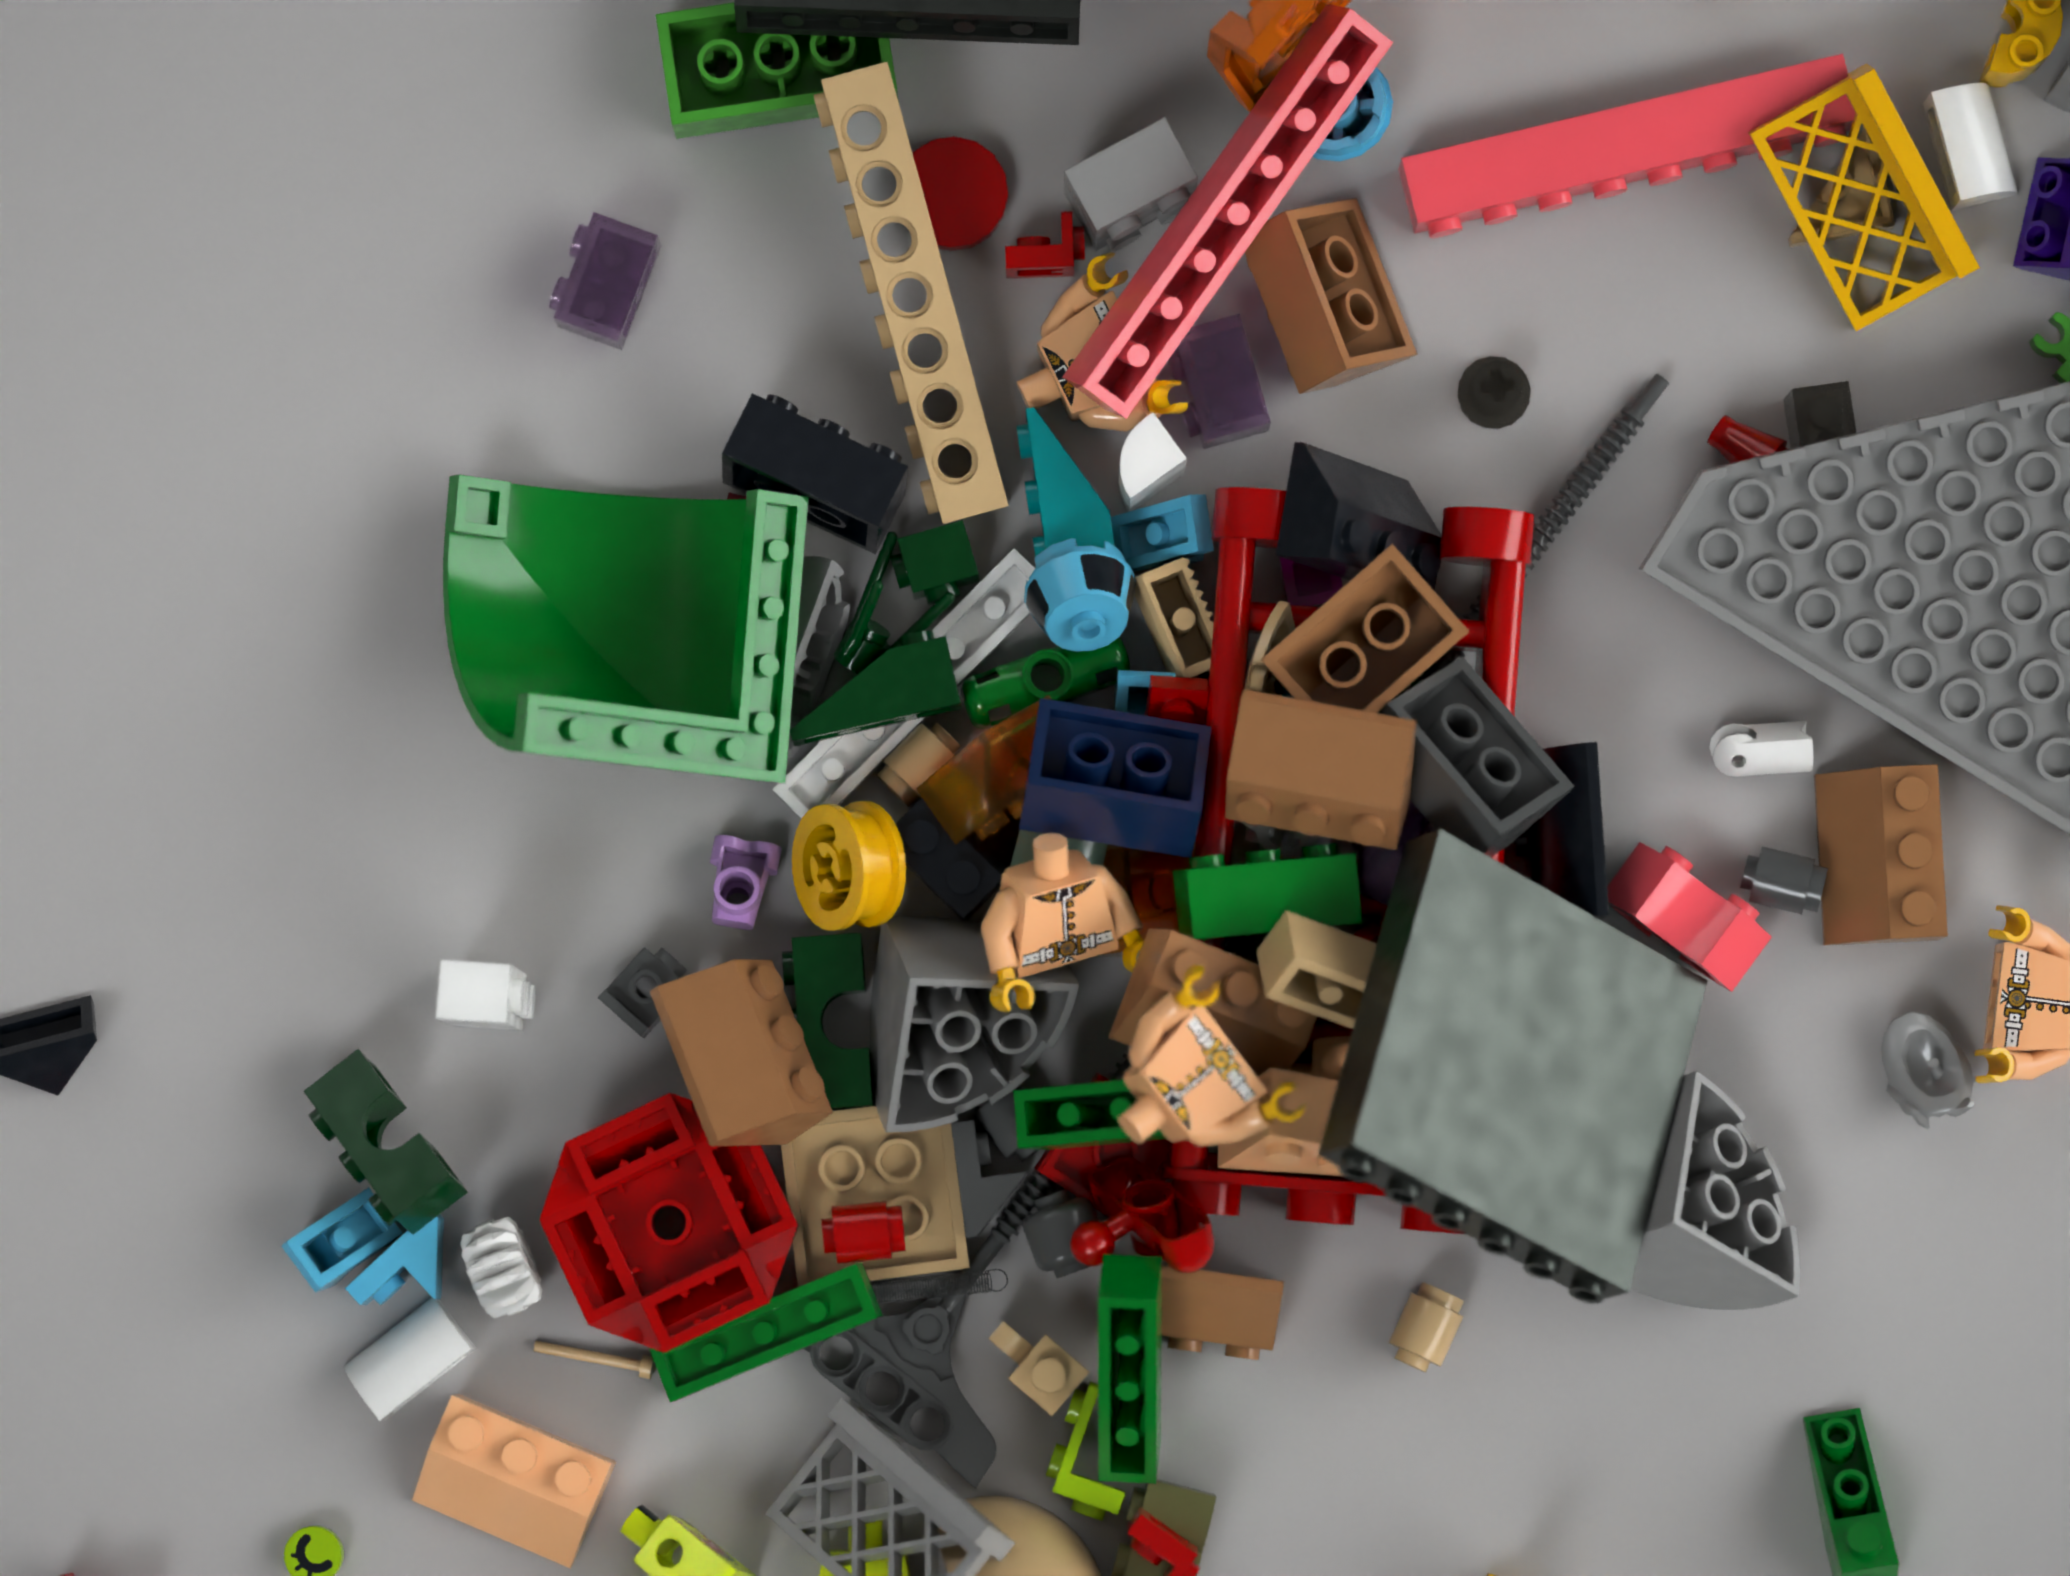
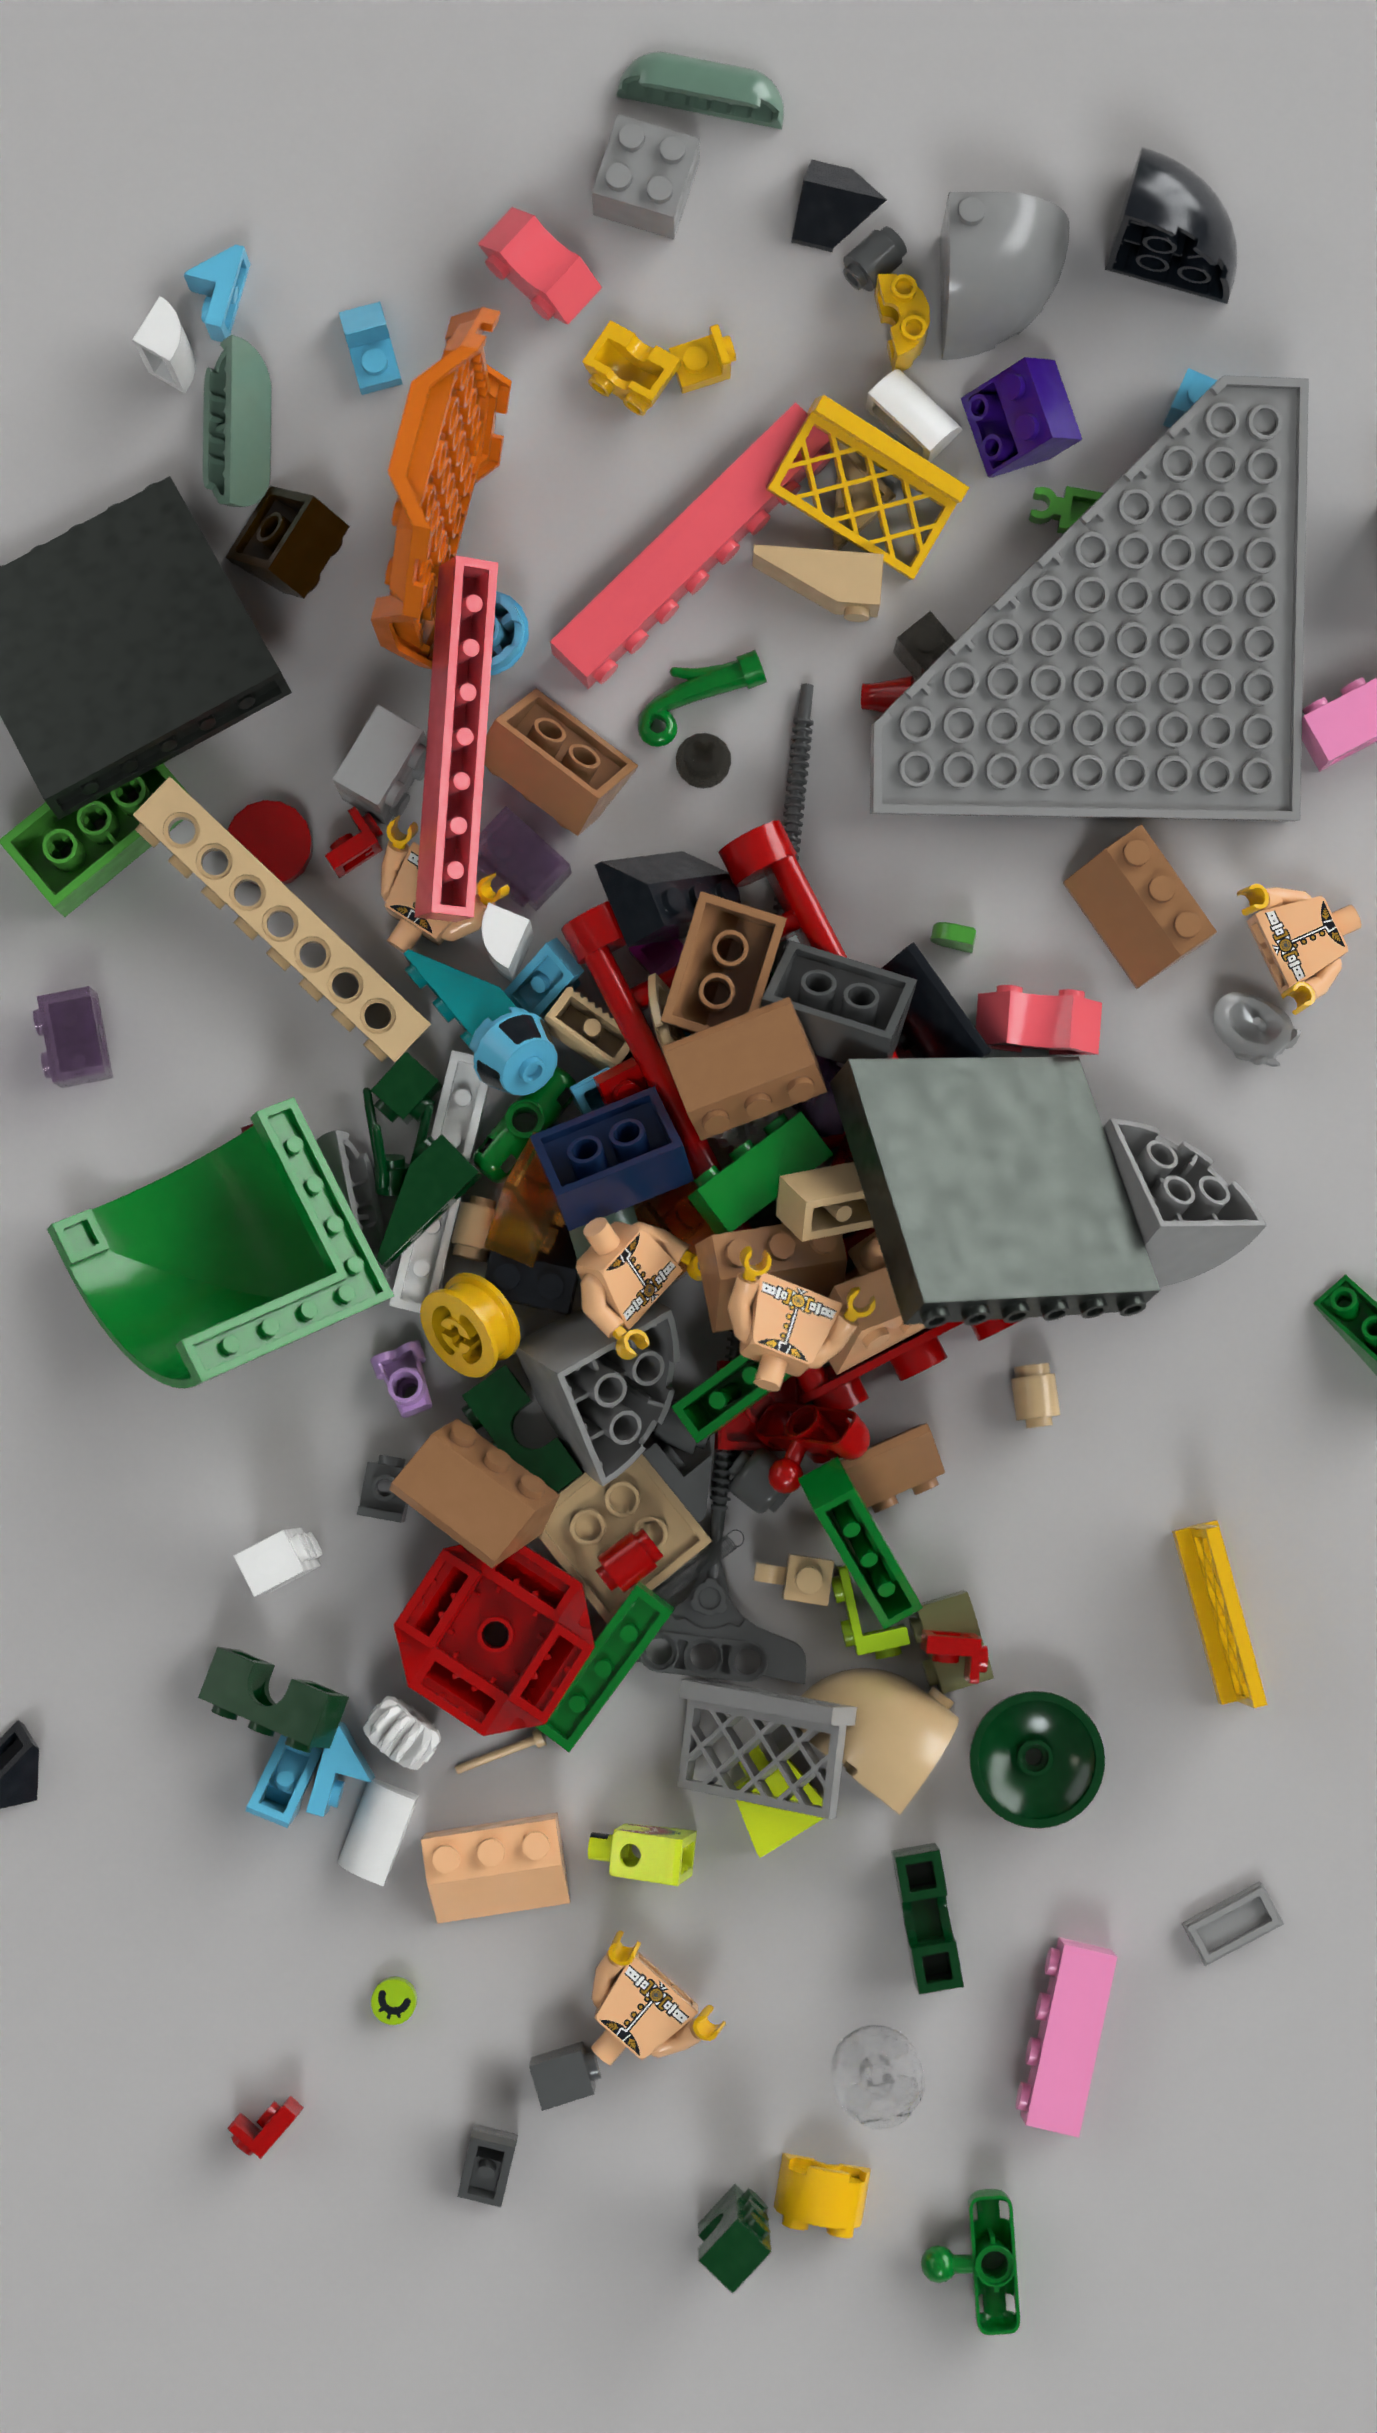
camera: 35 degrees left, 0 degrees up
(848, 485) = (316, 1072): black brick -> none
(1542, 306) = (700, 684): none -> green plant
(1652, 761) = (954, 936): none -> bright green tile
(1762, 749) = (1020, 884): white piece -> none
(1764, 278) = (833, 579): none -> tan slope
(1784, 880) = (1087, 961): dark grey brick -> none

